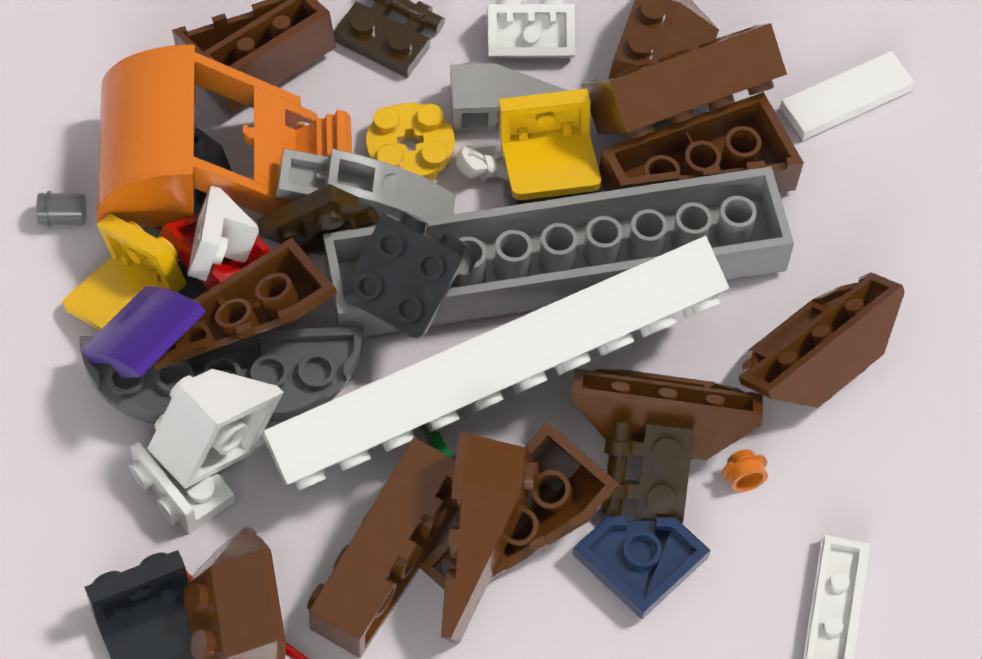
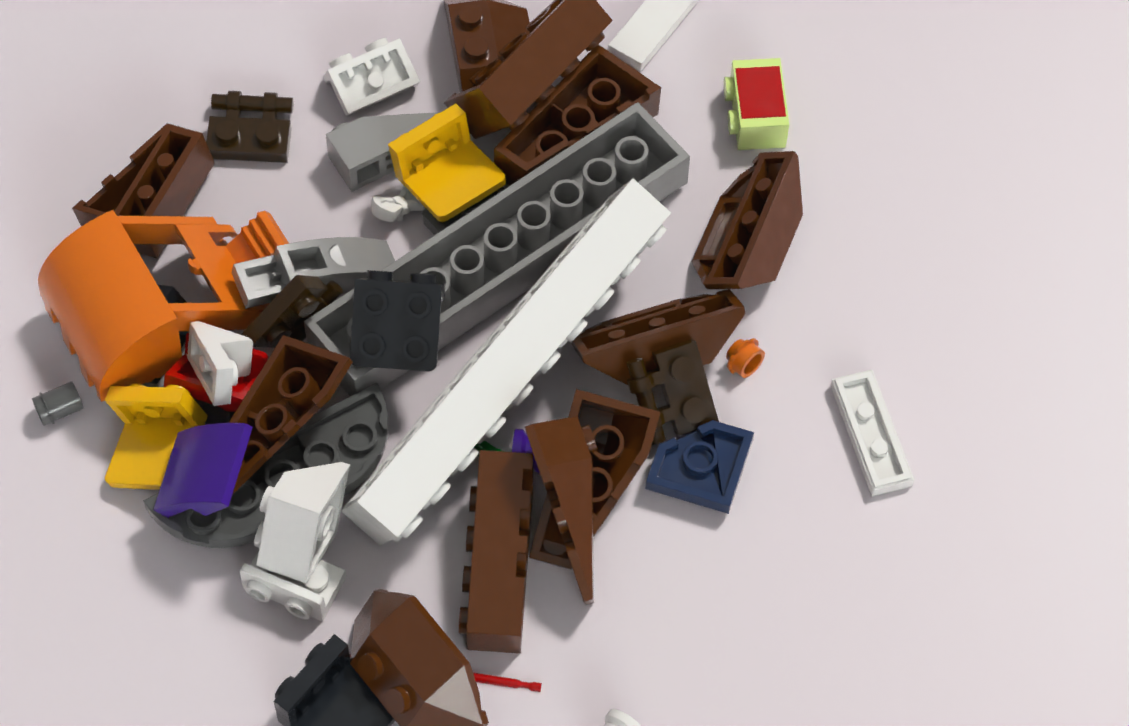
camera: 25 degrees left, 0 degrees up
(413, 121) = (317, 195): yellow plate -> none
(900, 223) = (758, 104): none -> brick

